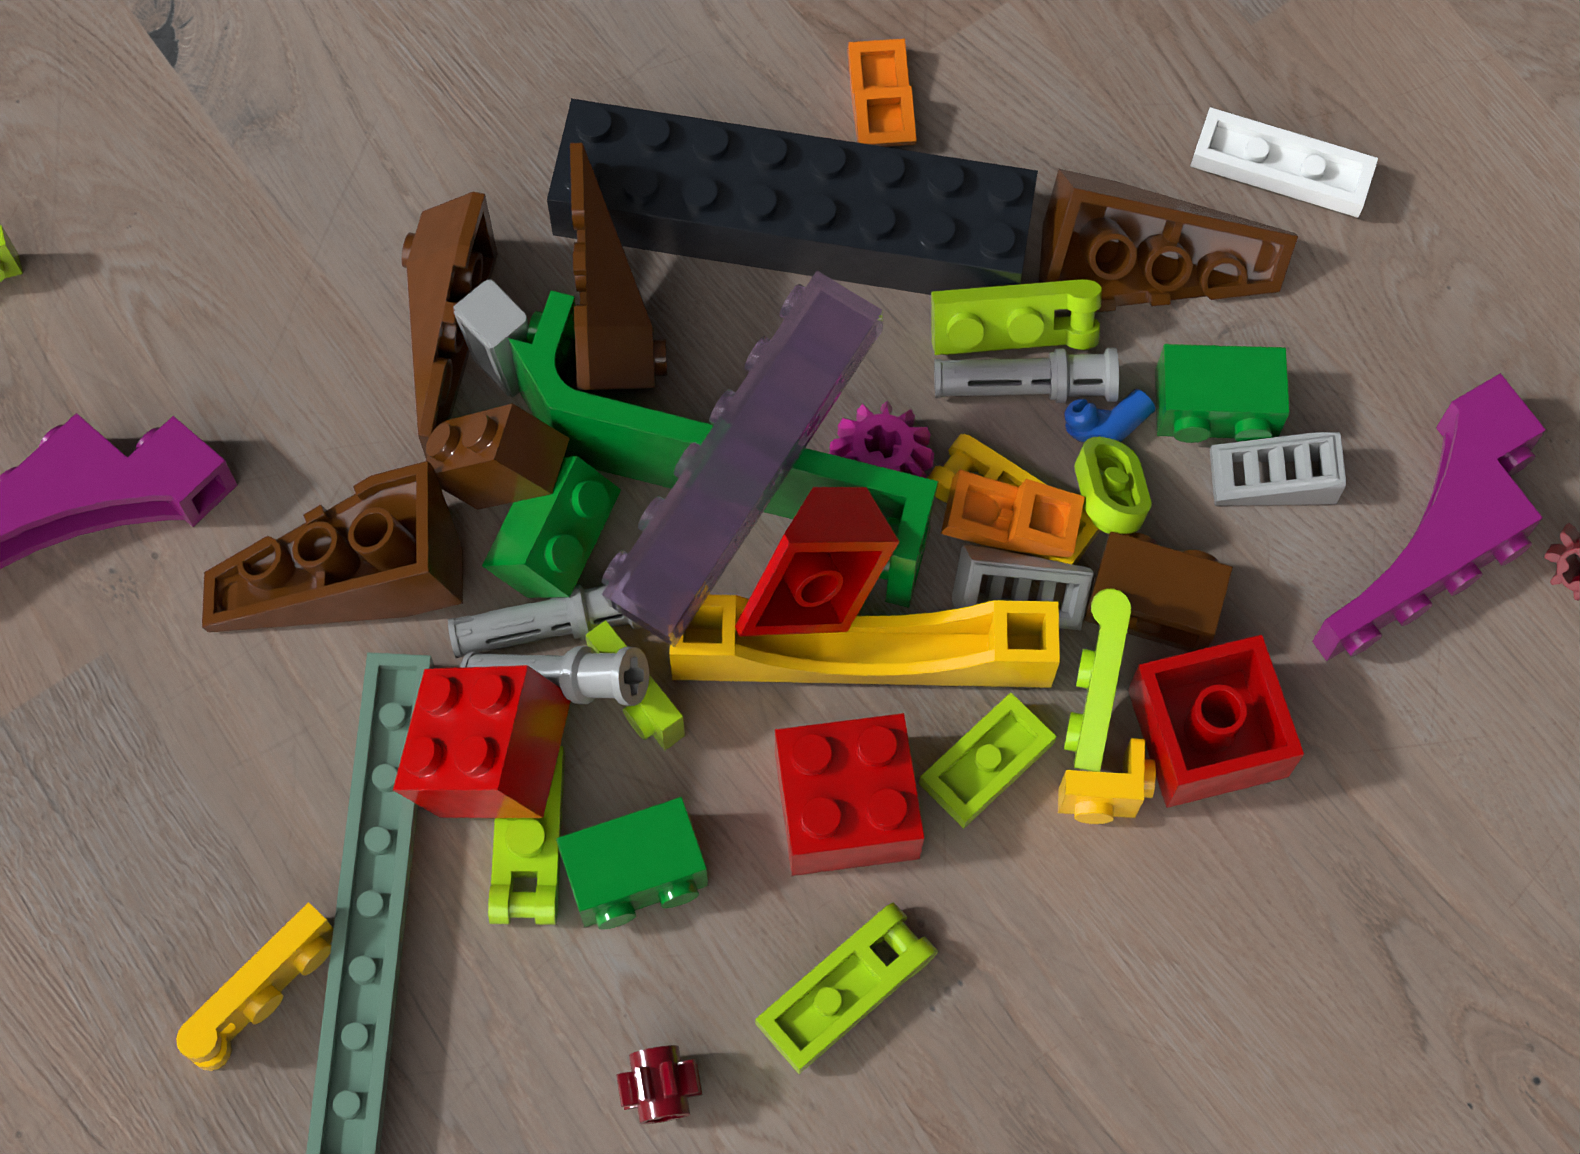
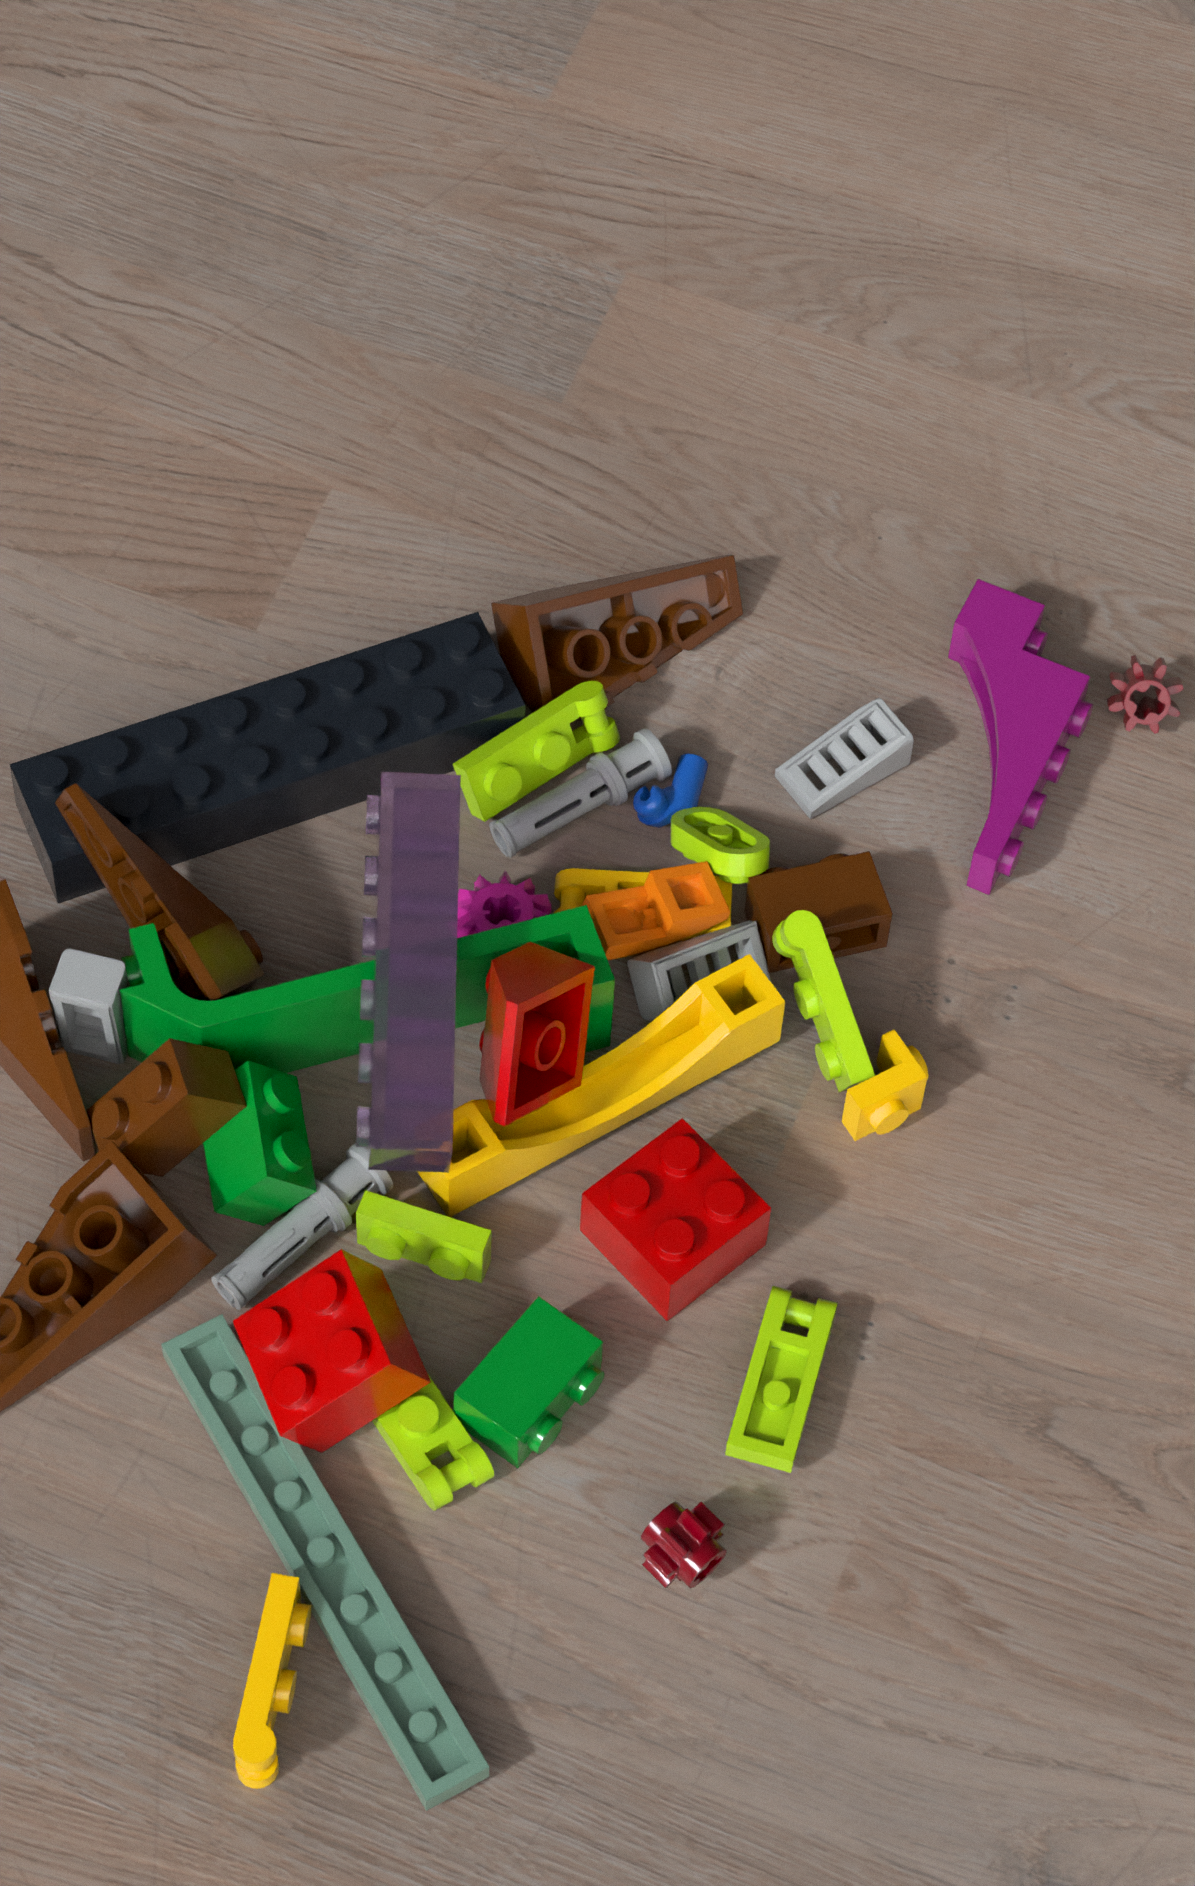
camera: 35 degrees left, 10 degrees down
(582, 672) = (384, 1239): light grey pin -> none
(881, 93) = (275, 624): orange slope -> none
(987, 760) = (771, 1125): lime plate -> none
(1215, 721) = (939, 983): red brick -> none
(1221, 392) = (755, 719): green brick -> none
(1284, 162) = (674, 502): white plate -> none

